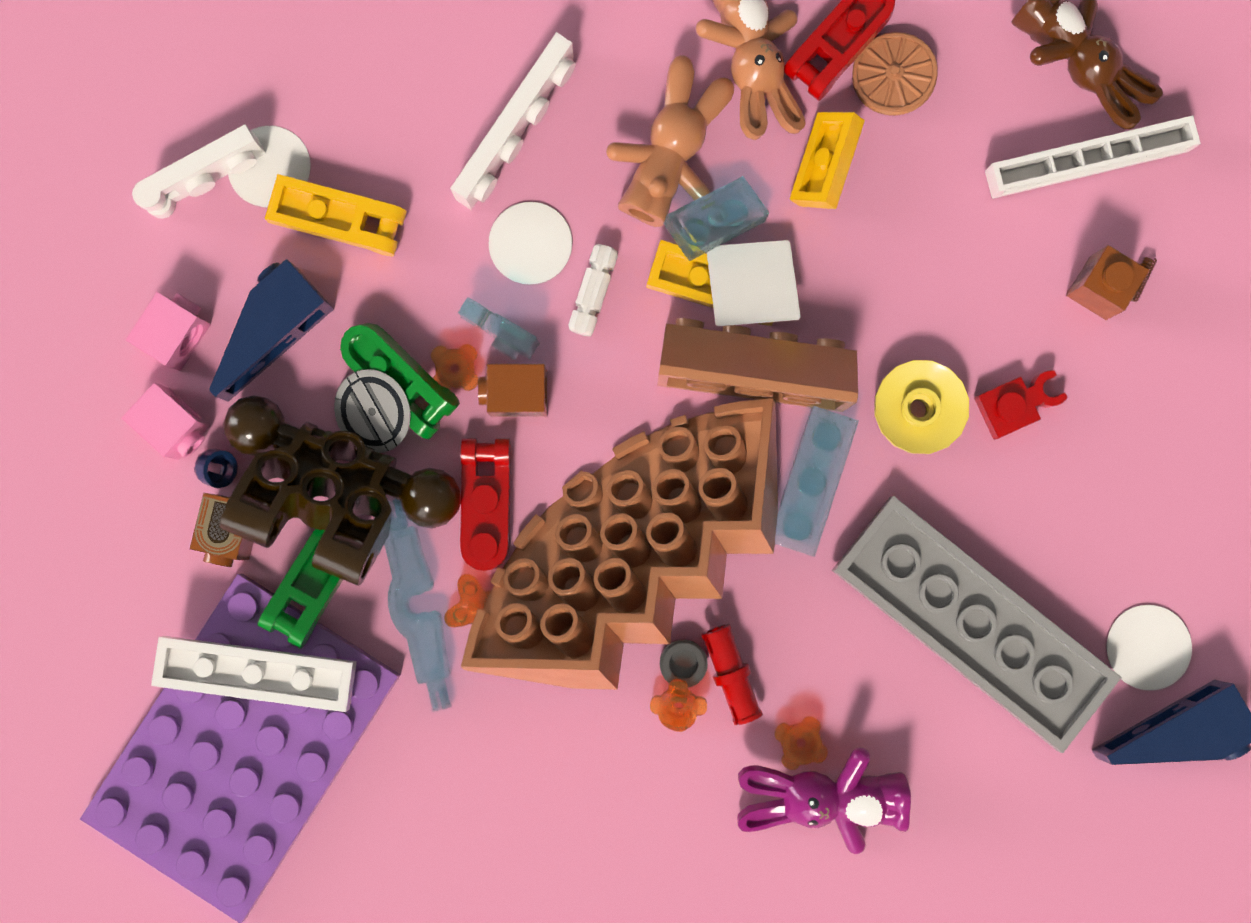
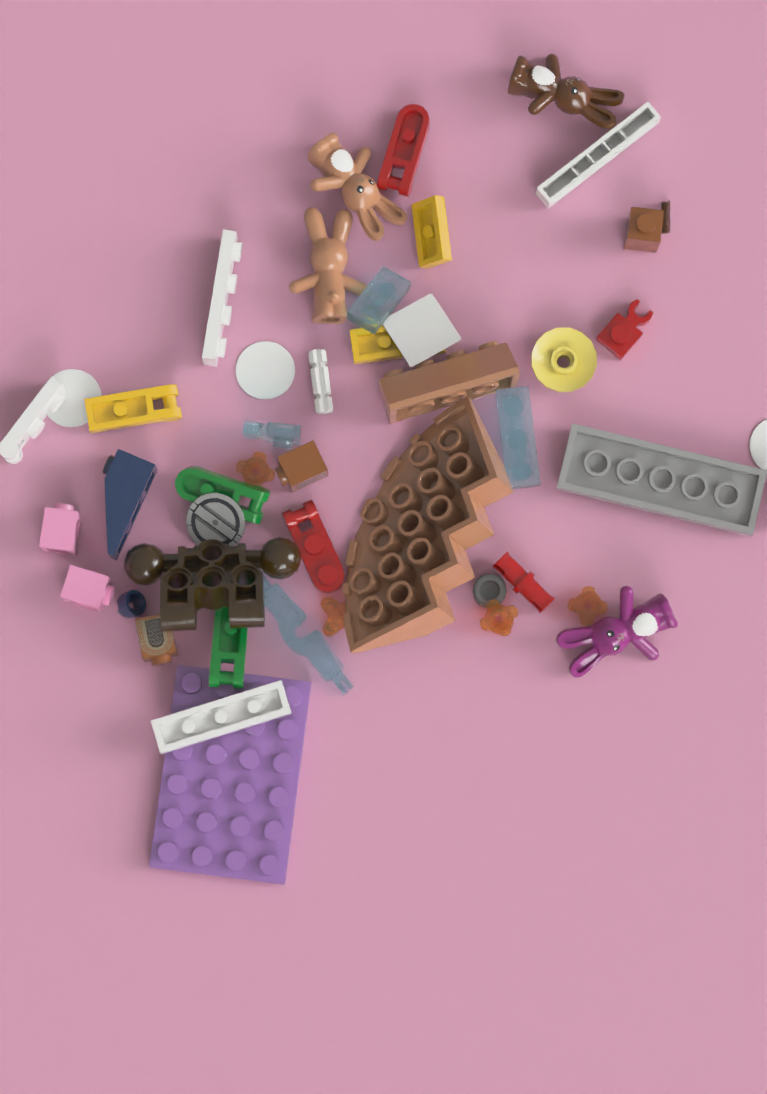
camera: 30 degrees left, 5 degrees down
(895, 74) = (449, 157): nougat wheel -> none

